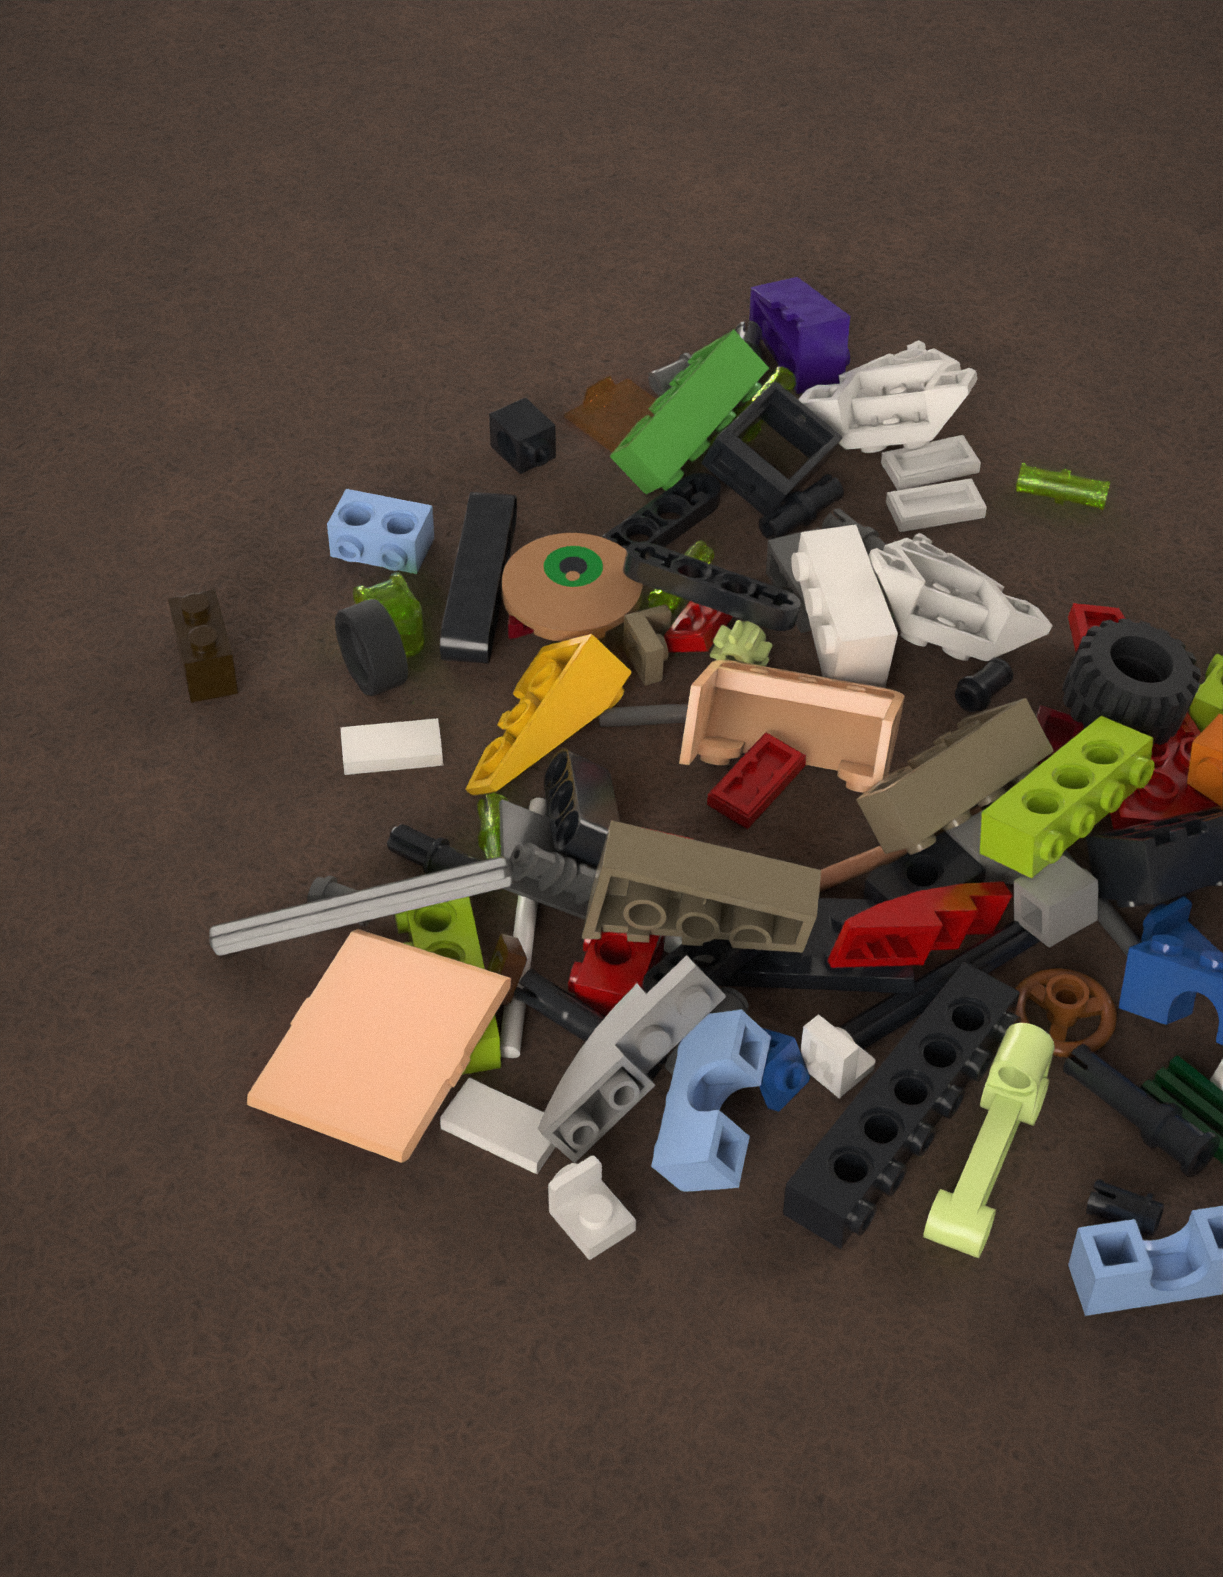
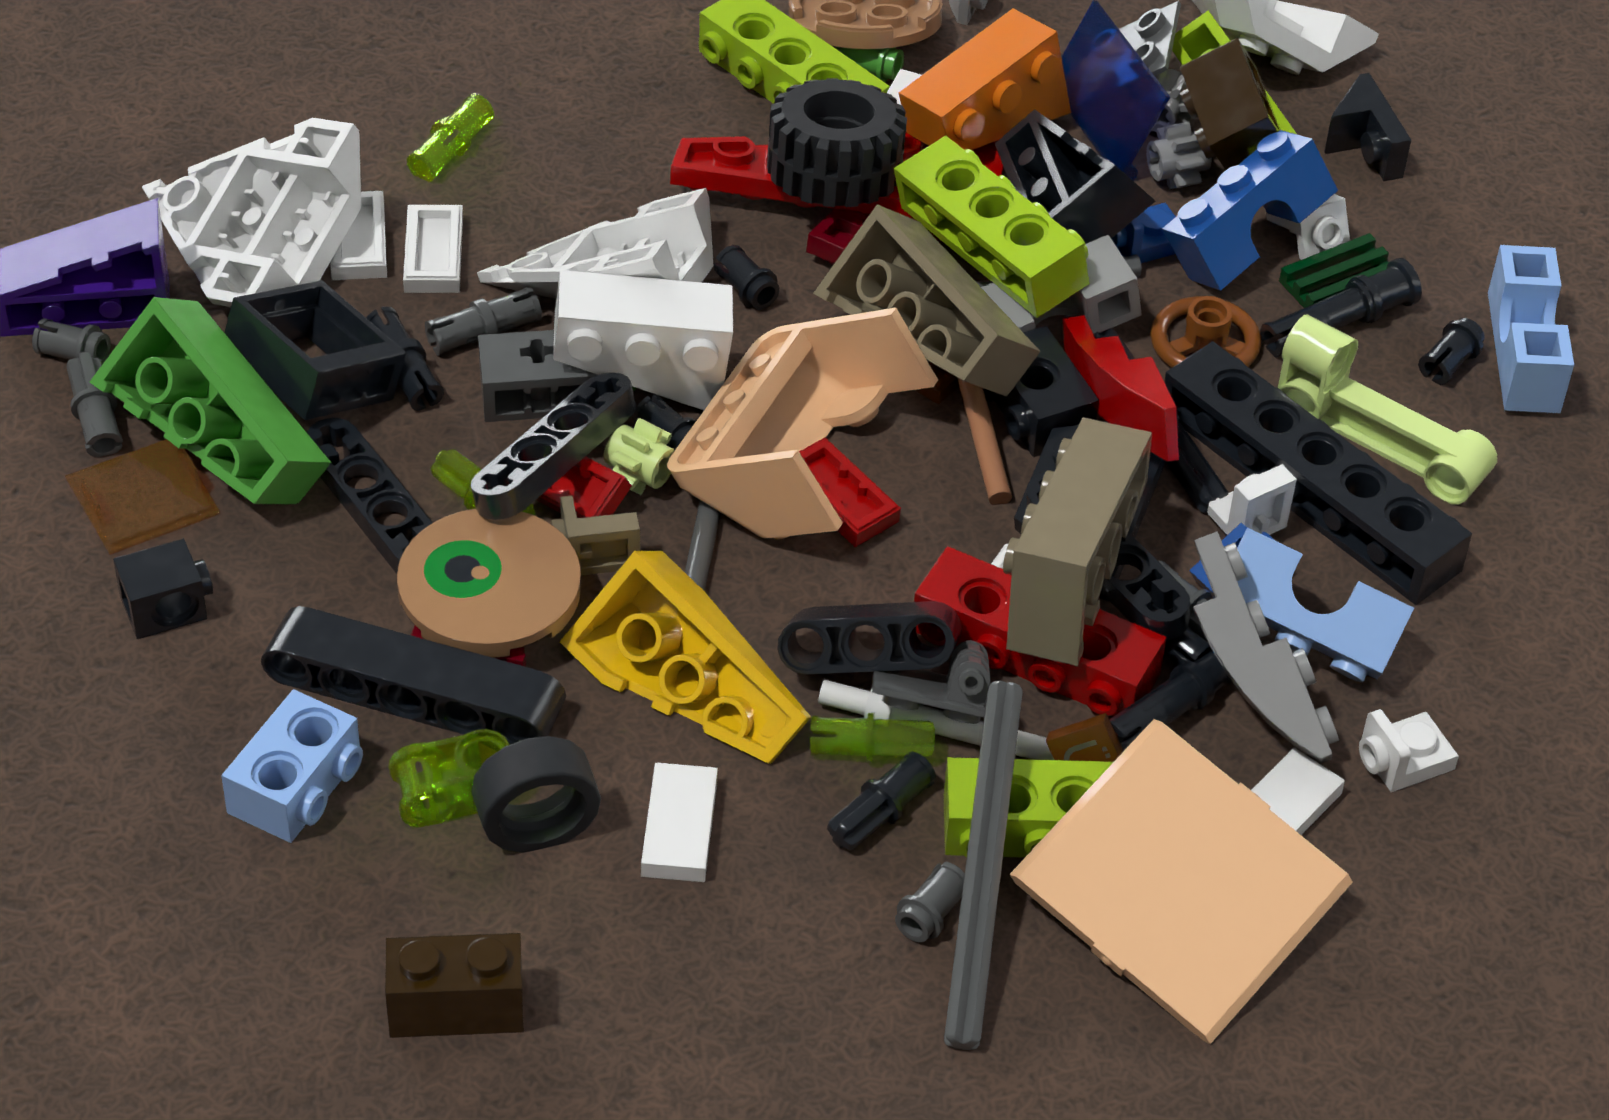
camera: 80 degrees left, 0 degrees up
(793, 661) = (663, 416): none -> black pin

